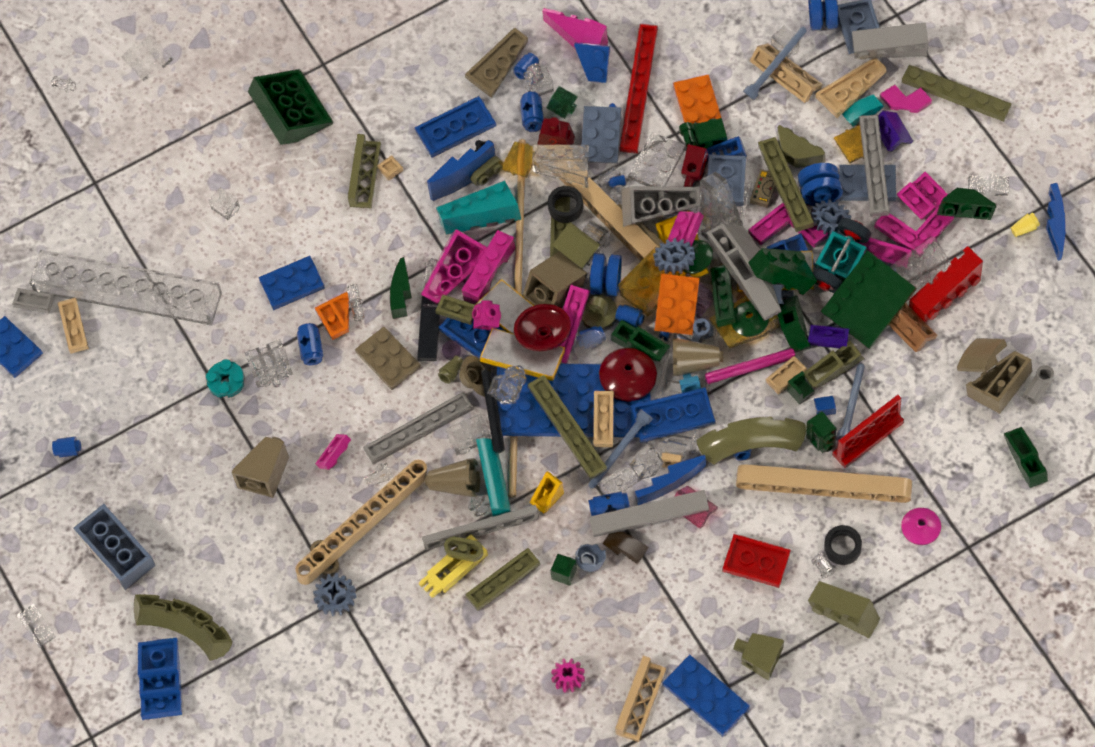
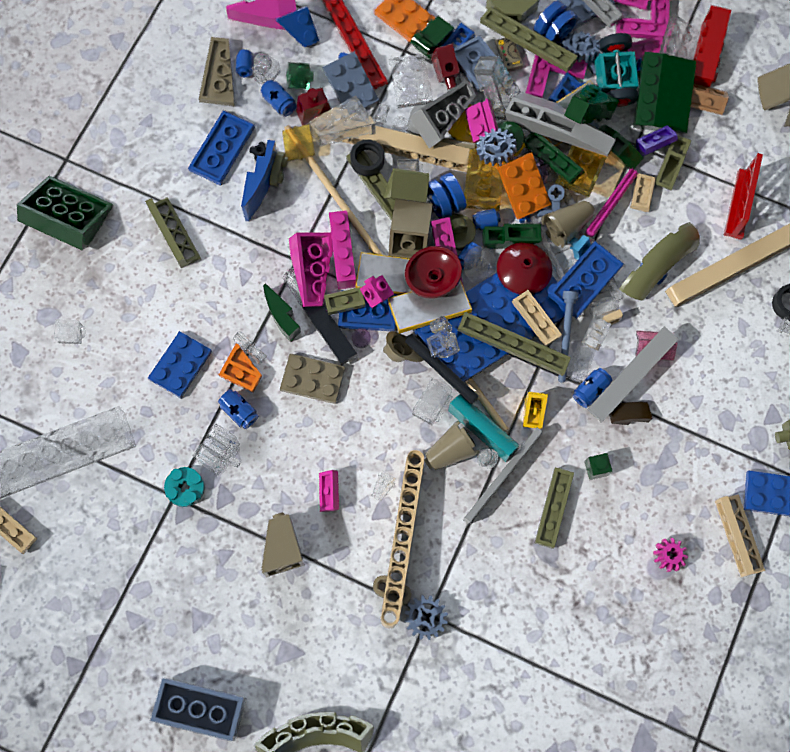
camera: 45 degrees left, 10 degrees up
(66, 447) = (84, 644): blue brick -> none
(390, 168) = (192, 214): tan tile -> none
(418, 428) = (383, 423): light grey tile -> none
(450, 370) = (374, 356): olive cone -> none
(458, 570) = (507, 518): light yellow hinge -> none
(464, 546) = (507, 504): olive plate -> none
(479, 209) = (298, 203): teal wedge -> none
(590, 557) = (612, 441): sand blue hair -> none
(618, 180) = (391, 114): blue piece -> none
(677, 476) = (624, 331): blue slope -> none
(748, 326) = (592, 170): dark green dish -> none
(756, 560) = (738, 358): red plate -> none
(799, 388) = (662, 197): dark green panel -> none
(821, 432) = (713, 221): dark green window -> none
(825, 404) = (689, 198): blue slope -> none
(852, 402) = (727, 212): sand blue piece -> none

